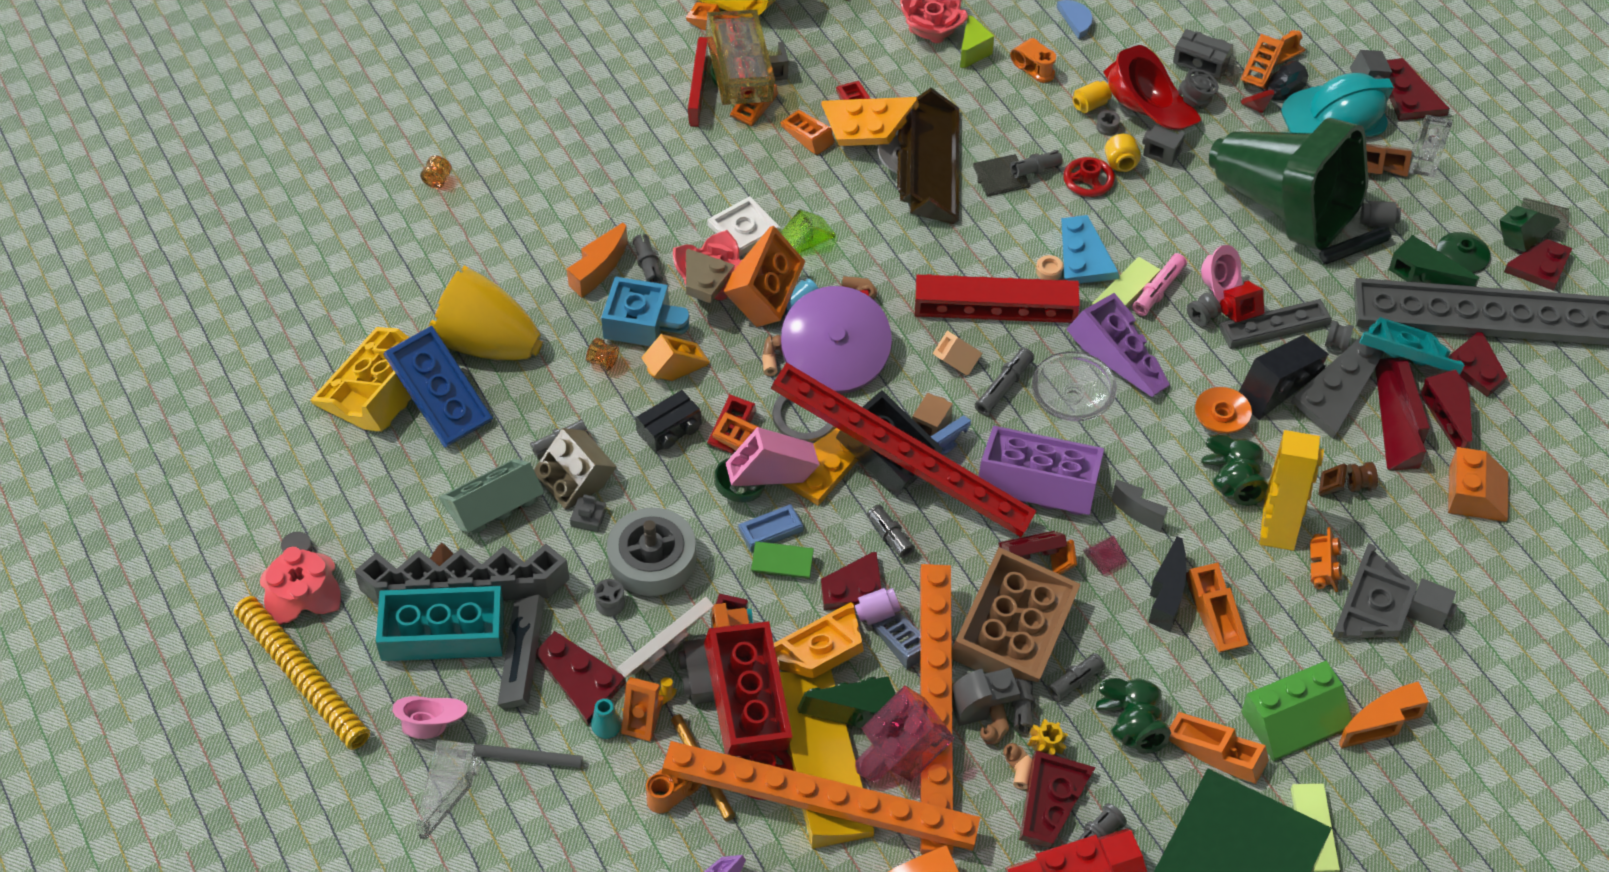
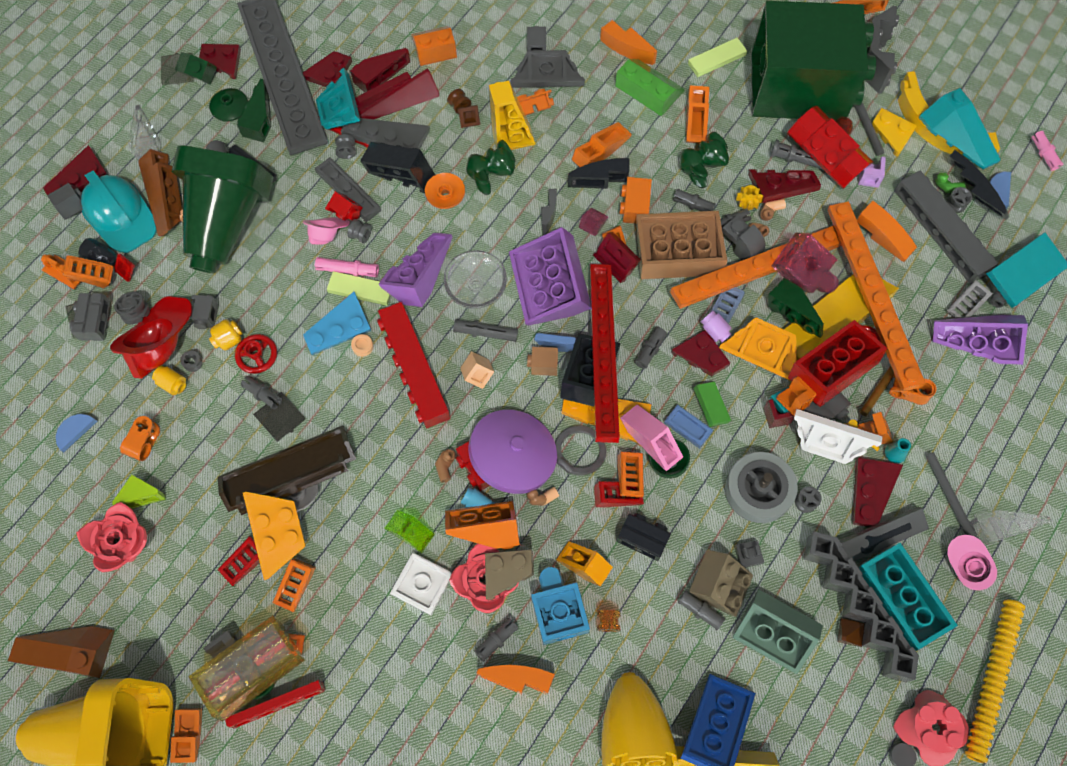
camera: 115 degrees left, 15 degrees up
(1108, 607) = (637, 198): none -> orange brick

